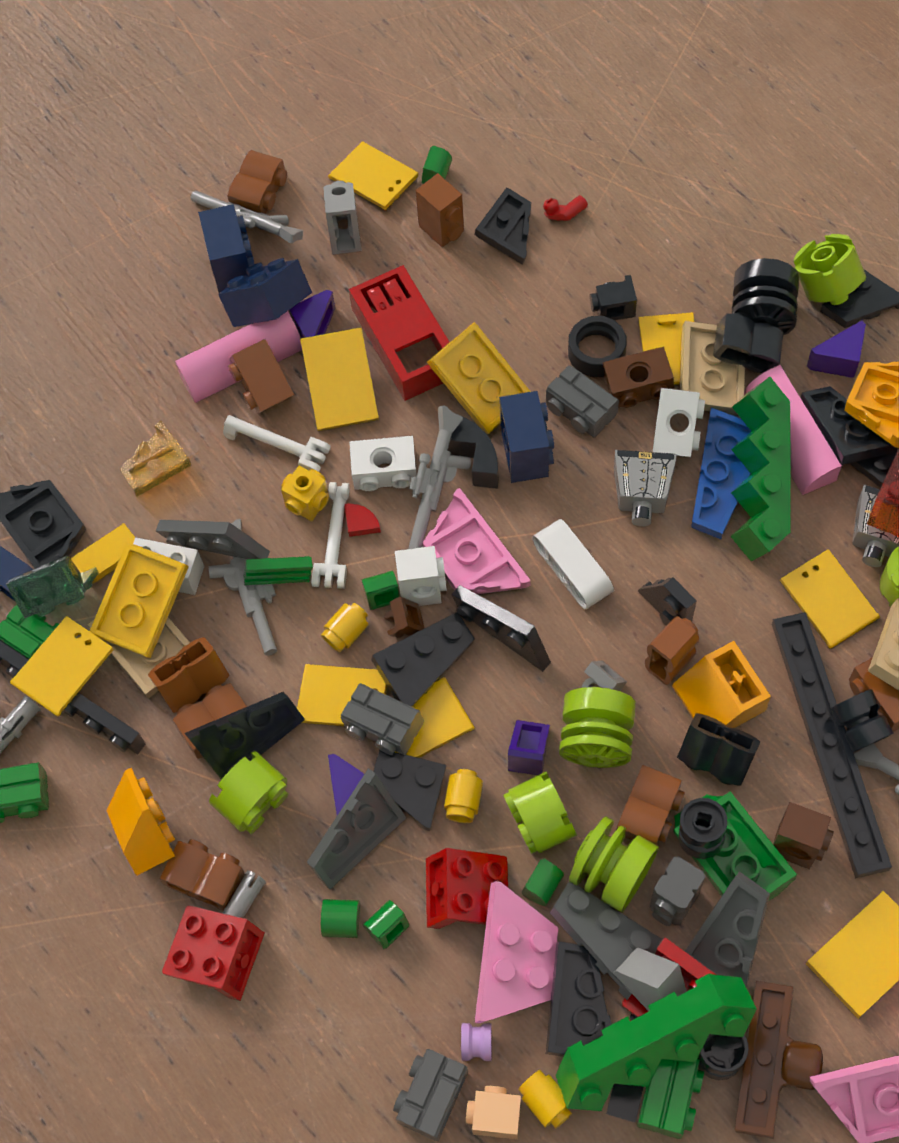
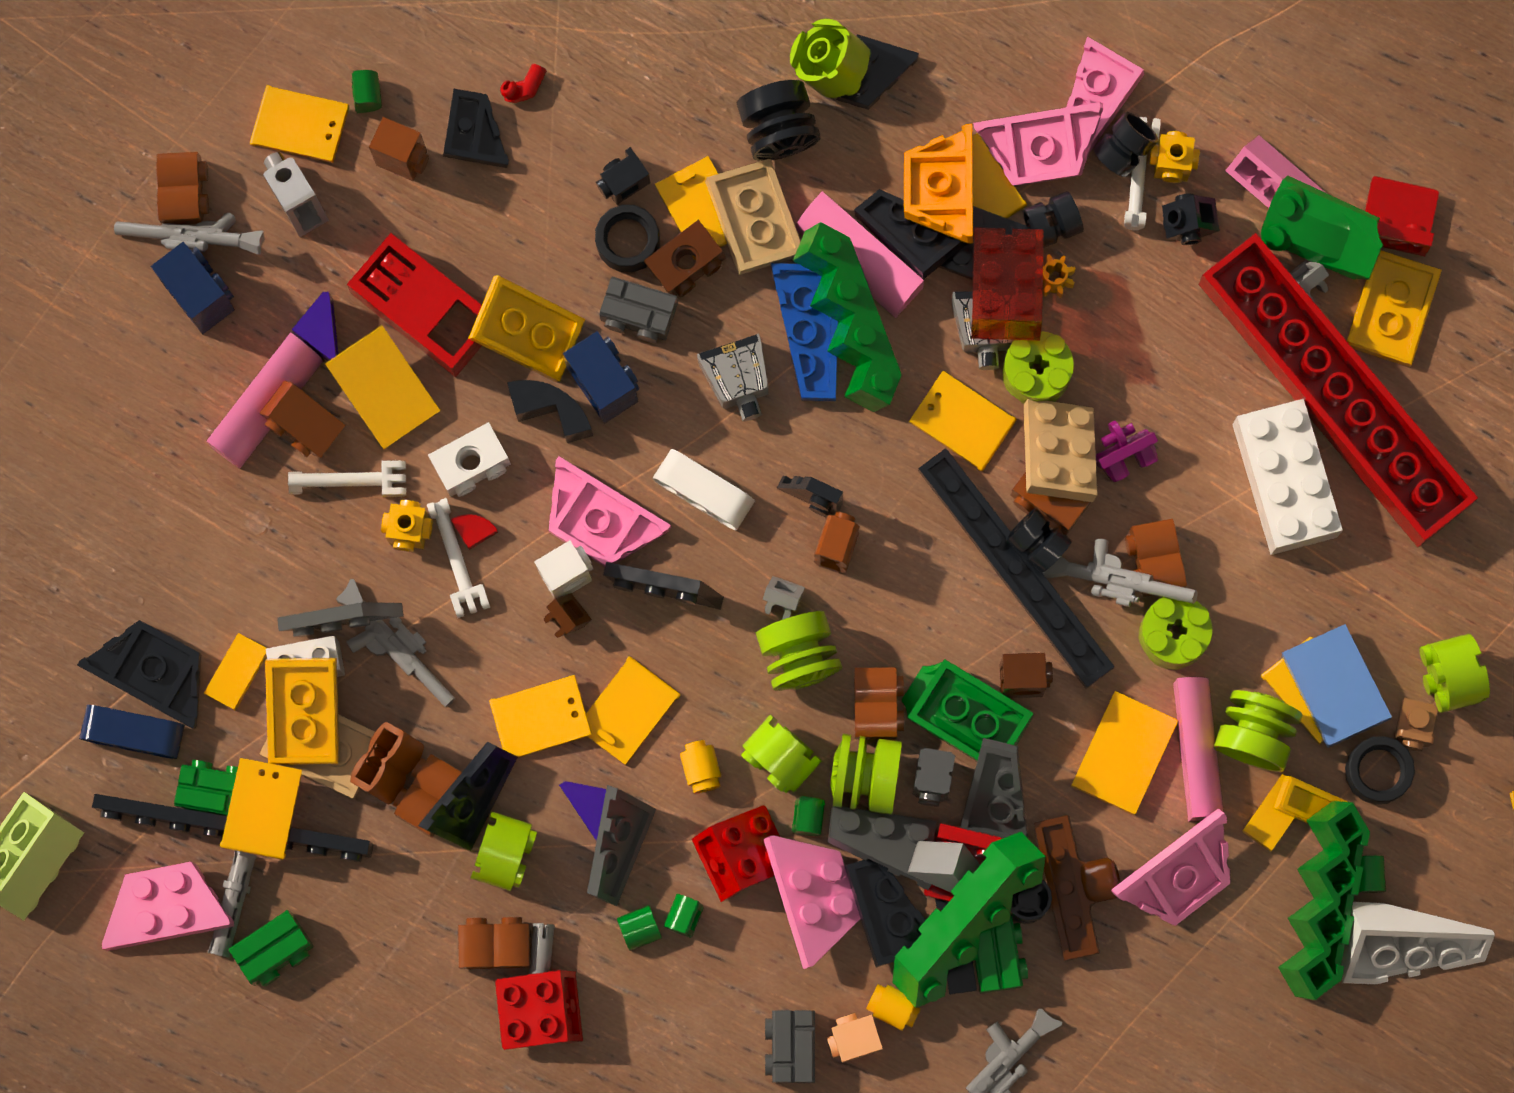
camera: 25 degrees left, 15 degrees up
(49, 586) = (214, 737): clear green bracket -> none
(139, 824) = (416, 926): light orange slope -> none
(154, 461) = (234, 553): clear yellow wing -> none
(264, 292) = (263, 326): dark blue brick -> none
(277, 570) = (420, 620): green tile -> none
(345, 626) = (512, 647): yellow brick -> none
(380, 589) = (529, 594): green brick -> none
(381, 720) = (594, 729): dark grey brick -> none
(412, 784) = (646, 775): black wing -> none
(422, 658) = (602, 649): black wing -> none
(442, 469) = (528, 462): light grey piece -> none
(476, 1042) = (811, 984): lavender wheel -> none
(528, 747) = (740, 691): dark purple slope -> none
(671, 403) = (750, 317): white brick -> none
(702, 837) = (934, 709): black wheel -> none
(718, 749) = (918, 622): black brick -> none
(723, 687) = (898, 564): light orange slope -> none
(748, 343) = (781, 179): black brick -> none
(840, 353) = (877, 147): dark purple slope -> none

